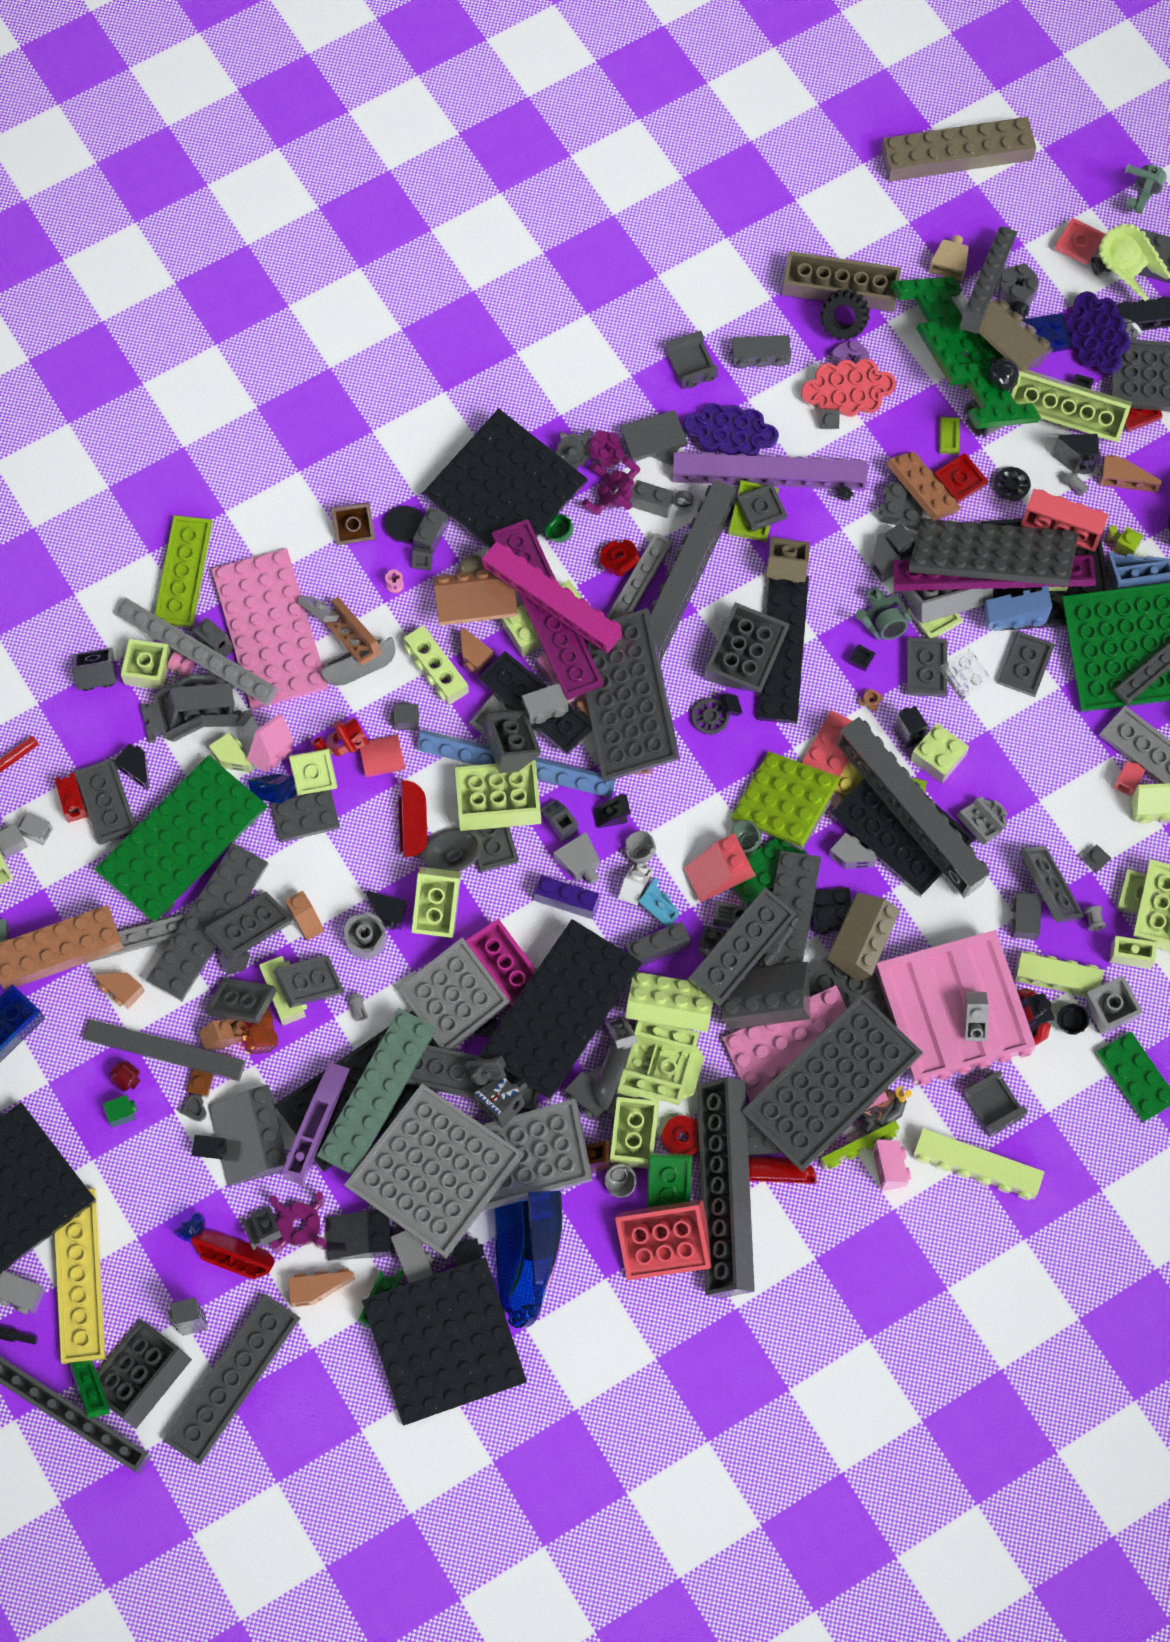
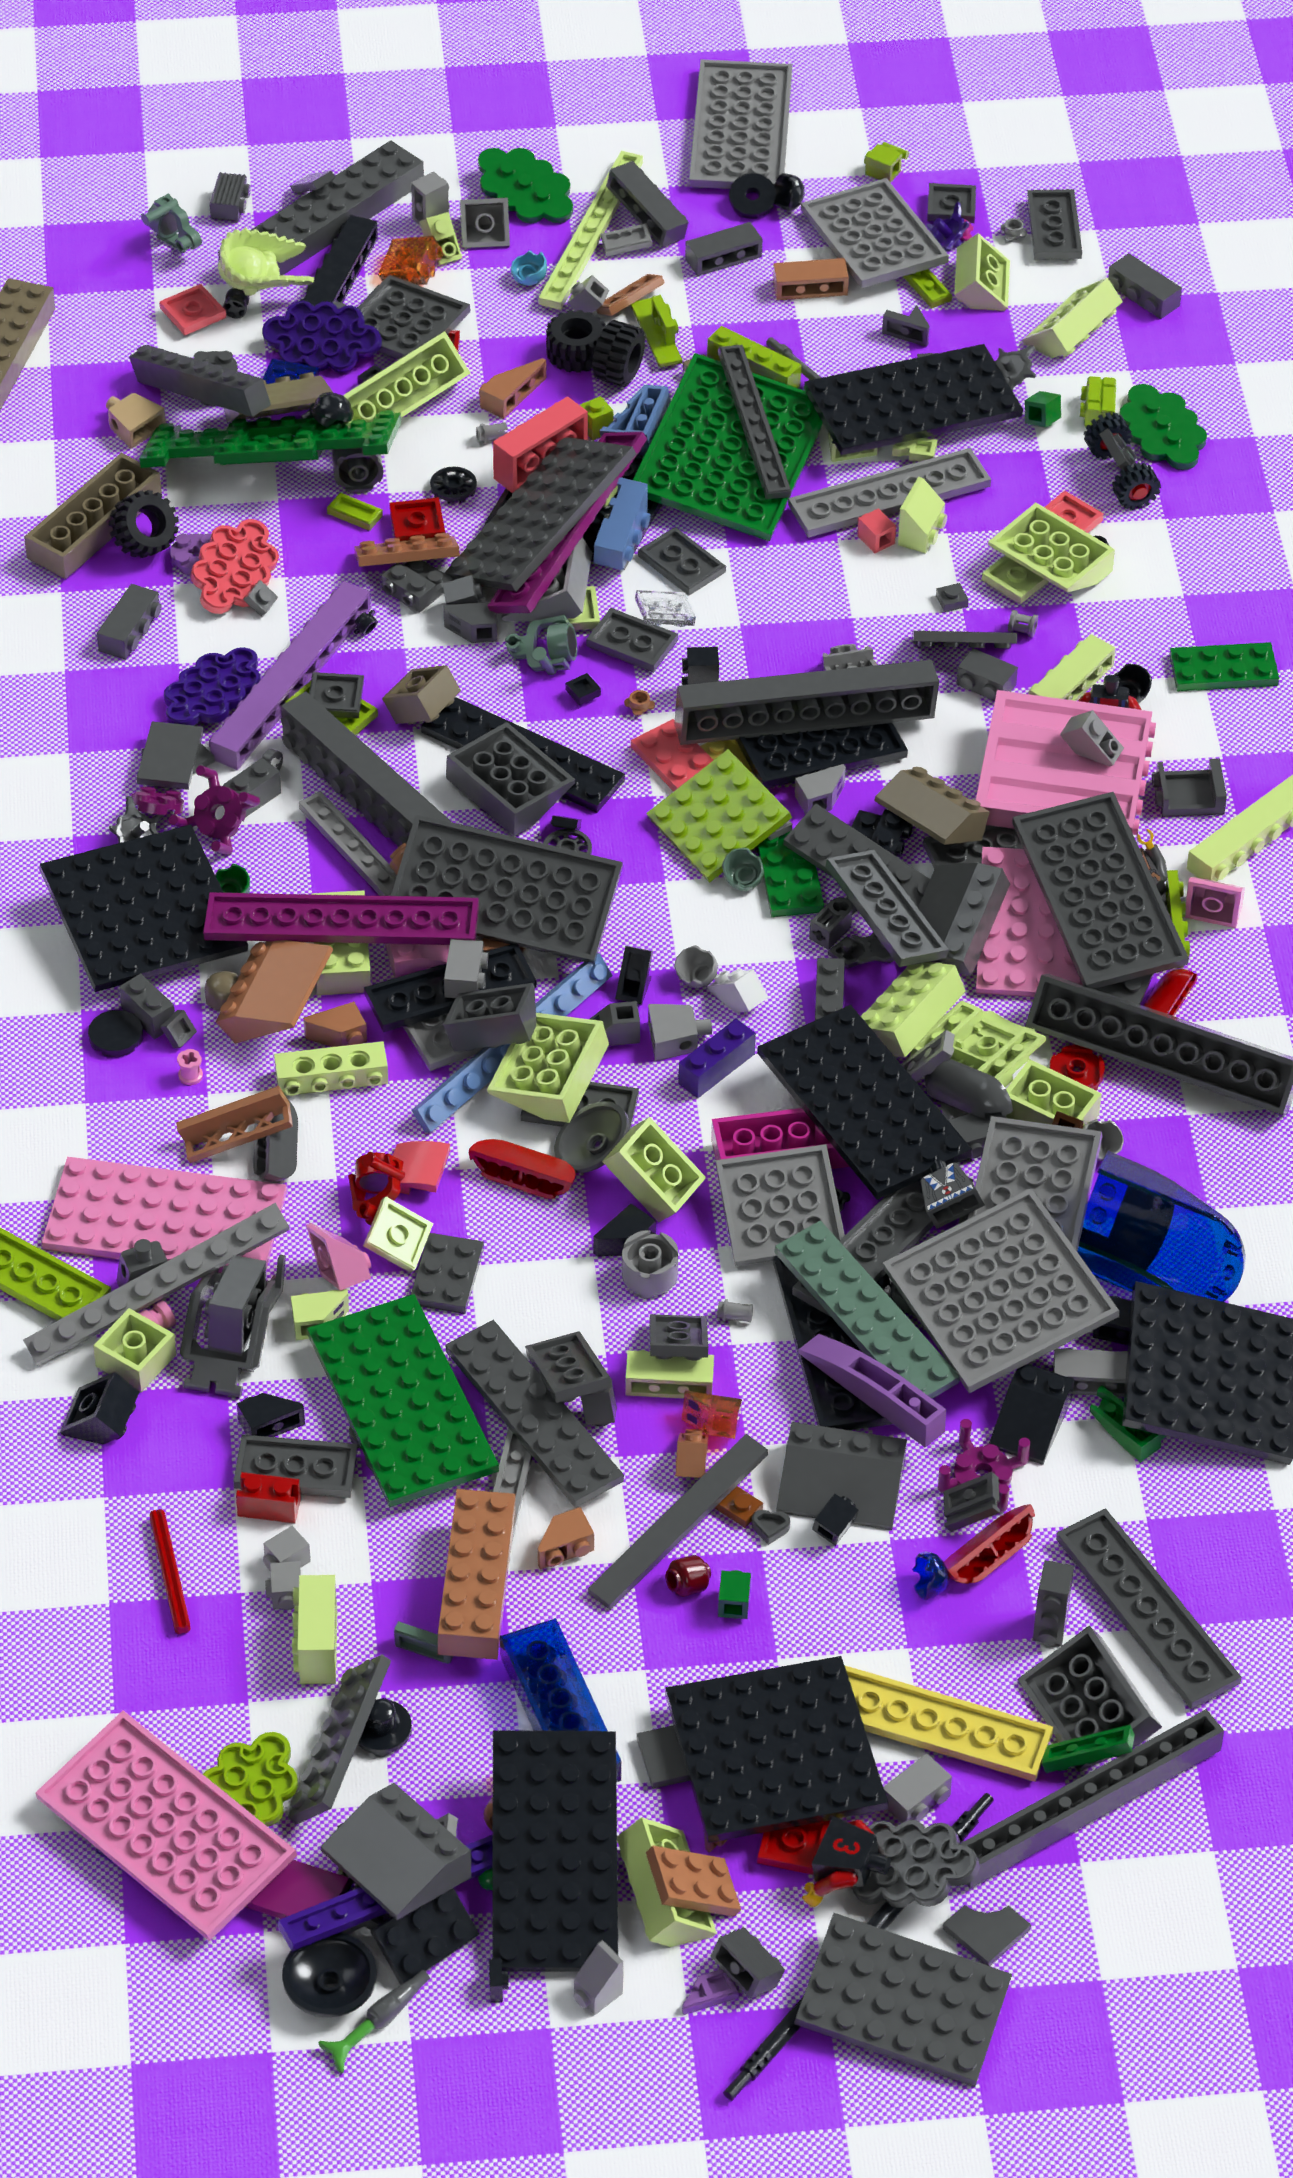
camera: 65 degrees left, 20 degrees down
(240, 1000) = (662, 1412): dark grey plate -> none
(273, 788) = (393, 1280): clear blue slope -> none
(304, 915) = (582, 1314): nougat slope -> none
(312, 1289) = (1075, 1484): nougat slope -> none
(318, 609) = (177, 1149): light grey plate -> none
(353, 523) = (81, 1077): reddish brown slope -> none
(405, 716) = (381, 1122): dark grey brick -> none
(486, 1069) = (904, 1191): dark grey hips -> none
(552, 597) = (337, 898): dark pink brick -> none
(619, 566) = (315, 854): red plate -> none
(659, 904) = (792, 978): medium azure wing -> none
(664, 1239) = (1196, 1123): coral slope -> none
(669, 1179) = (1133, 1094): green tile -> none
(691, 360) = (93, 689): dark grey panel -> none
(719, 868) = (769, 903): coral slope -> none
(939, 753) = (747, 659): yellowish green brick -> none
(1077, 452) = (460, 408): black slope -> none
(1113, 1005) = (1137, 641): light grey slope -> none
(1133, 952) = (1083, 605): yellowish green brick -> none

